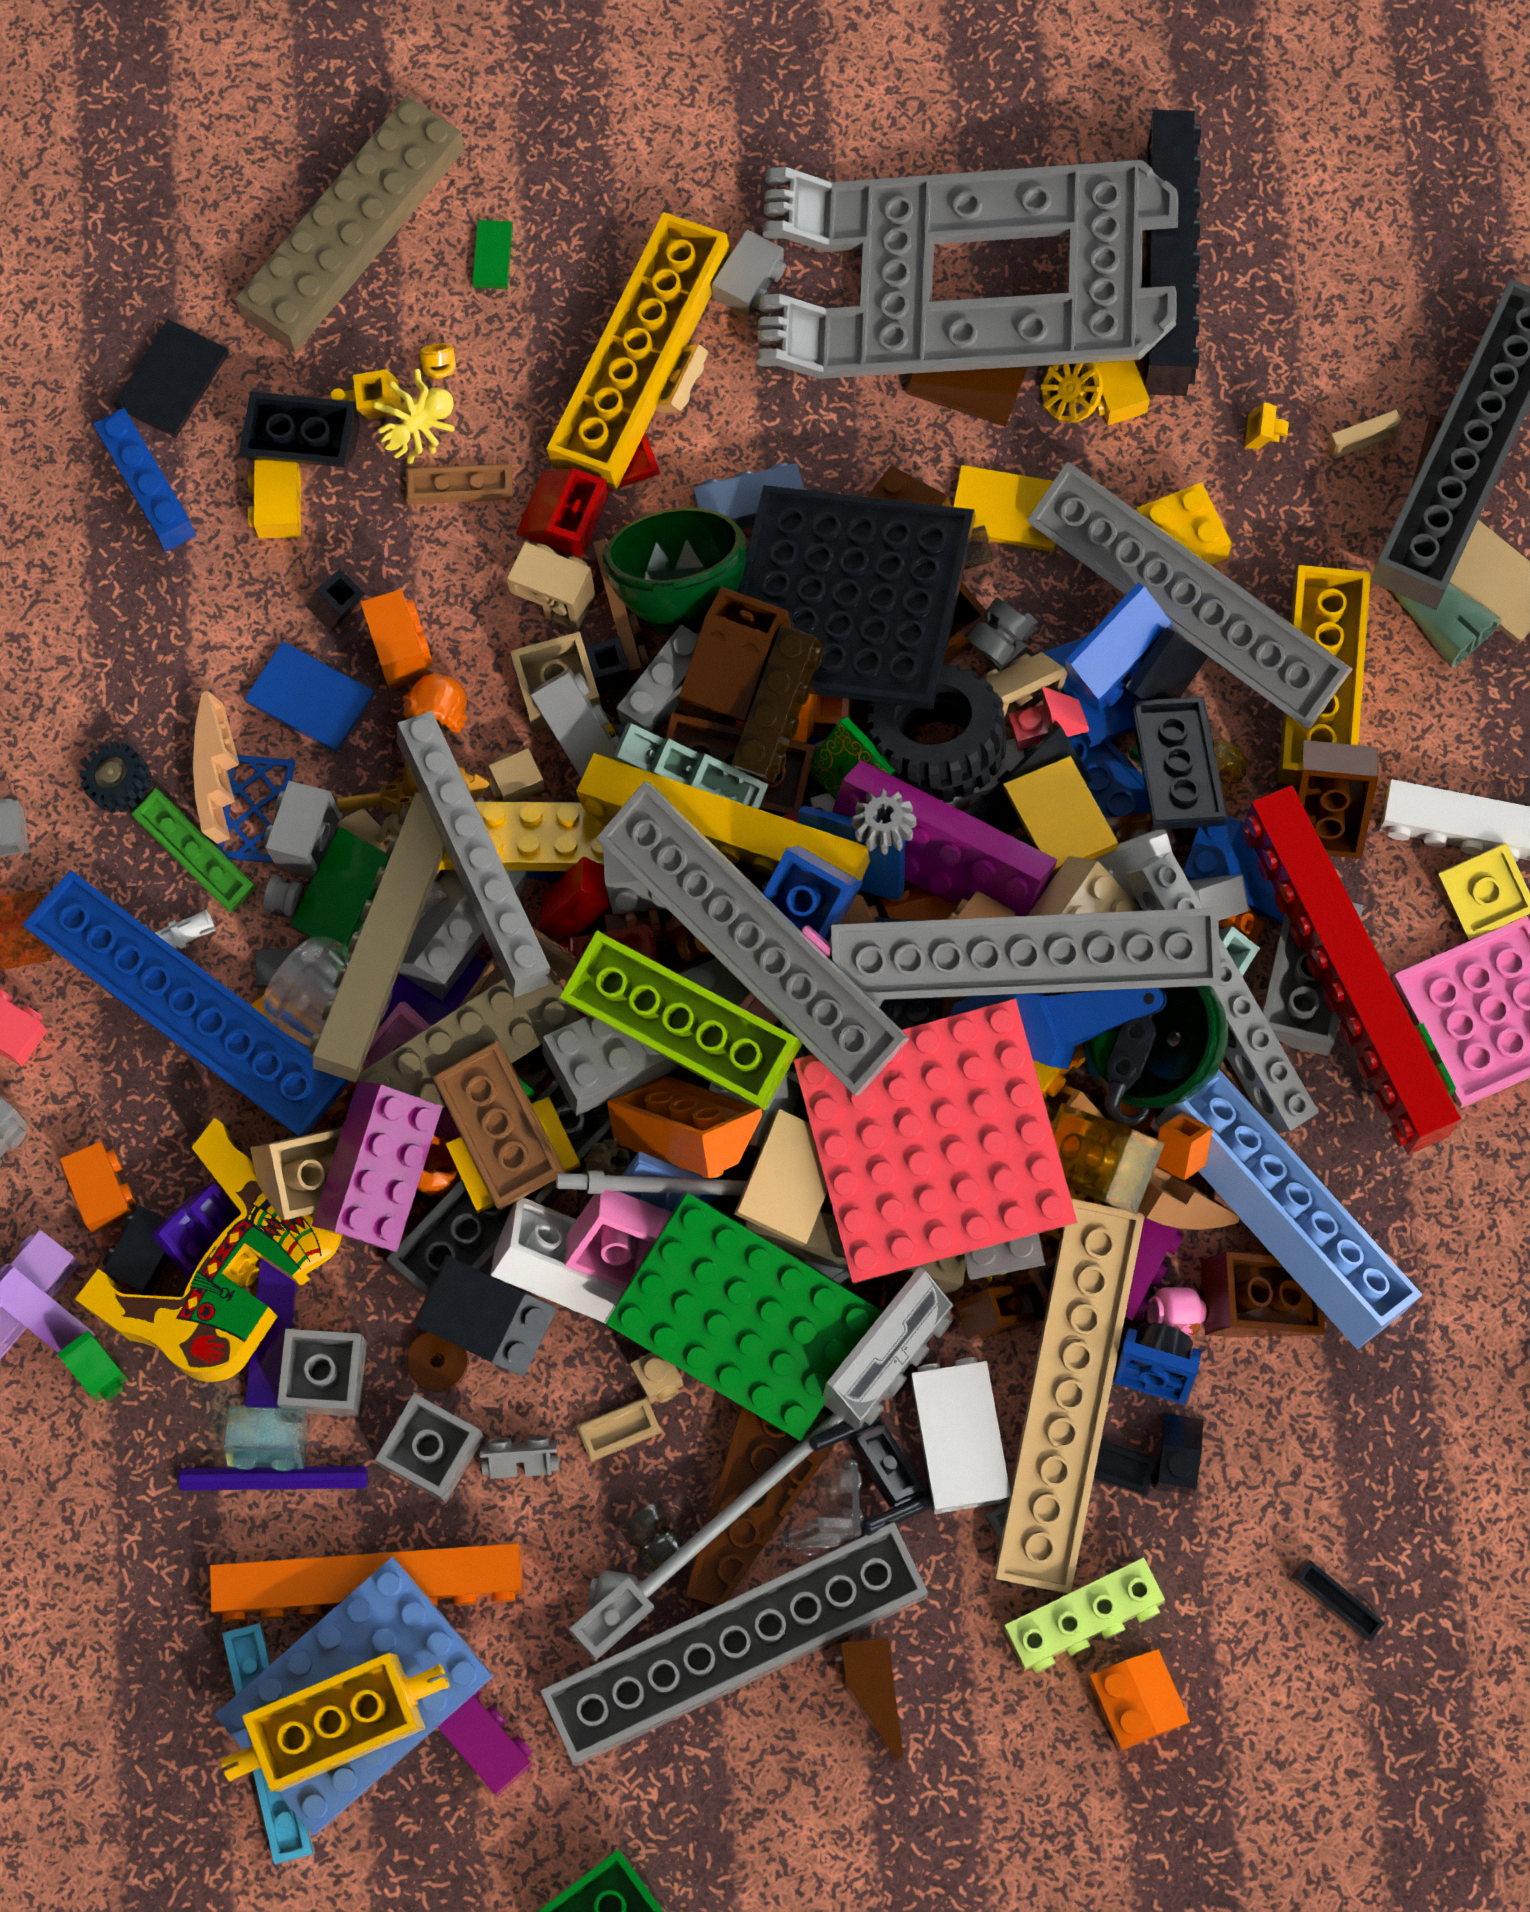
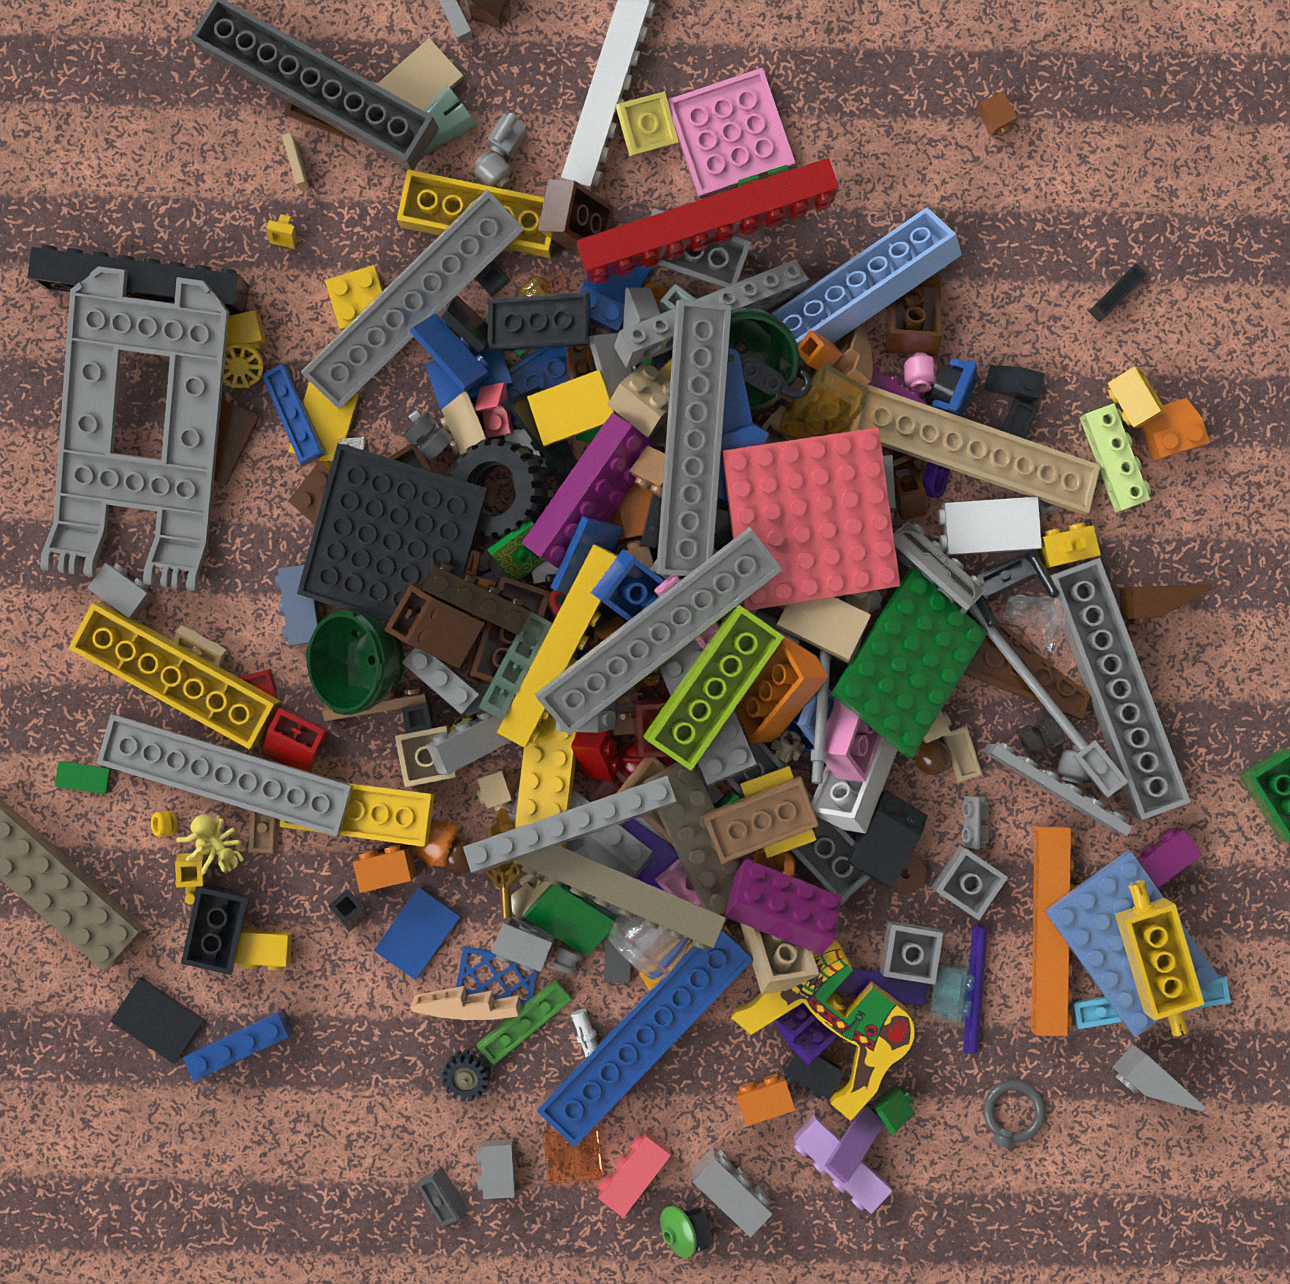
camera: 90 degrees left, 15 degrees up
(57, 1540) = (1003, 1136): none -> dark grey piece
(151, 1747) = (1141, 1073): none -> light grey slope
(472, 596) = (385, 815): none -> yellow plate
(509, 426) = (225, 775): none -> light grey plate
(555, 582) = (355, 751): tan brick -> none
(572, 1576) = (1065, 792): none -> light grey plate
(611, 1379) = (932, 757): none -> reddish brown piece
(884, 809) = (584, 520): light grey gear -> none
(943, 1556) = (1069, 546): none -> yellow brick
(1012, 465) = (293, 414): none -> blue tile
(1021, 1357) = (935, 480): none -> dark purple plate
(1177, 1630) = (1135, 397): none -> yellow brick
(1237, 708) = (492, 278): none -> black tile
(1389, 693) = (493, 170): none -> light grey head
(1439, 705) = (507, 136): none -> light grey brick

